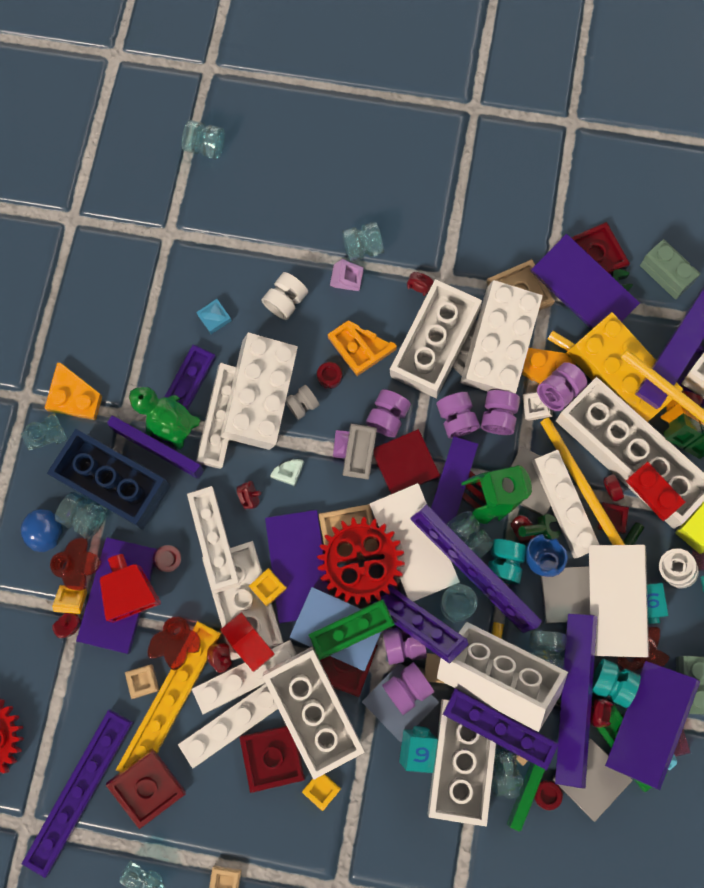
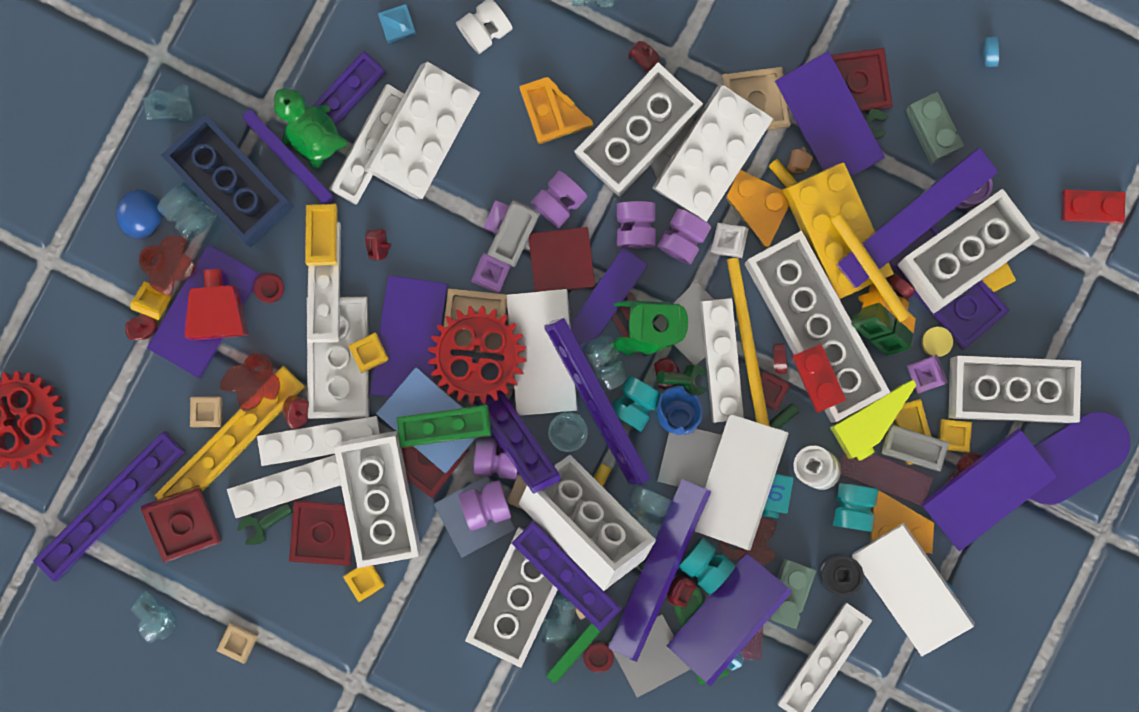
camera: 15 degrees right, 10 degrees up
(72, 395) = (211, 68): light orange wing -> none
(199, 500) = (321, 234): none -> yellow tile
(217, 766) = (263, 523): none -> dark green bar
(247, 642) = (329, 405): red slope -> none
(288, 471) = (429, 230): light aqua tile -> none
(302, 402) = (466, 156): light grey wheel -> none
(329, 375) = (508, 133): dark red tile -> none
(346, 275) = (563, 21): lavender slope -> none
(350, 490) = (490, 273): none -> medium lavender tile
(418, 750) = (477, 571): teal brick -> none
(562, 386) = (758, 230): medium lavender wheel -> none
(571, 326) = (799, 161): none -> medium nougat piece
(691, 200) = (991, 51): none -> dark azure tile

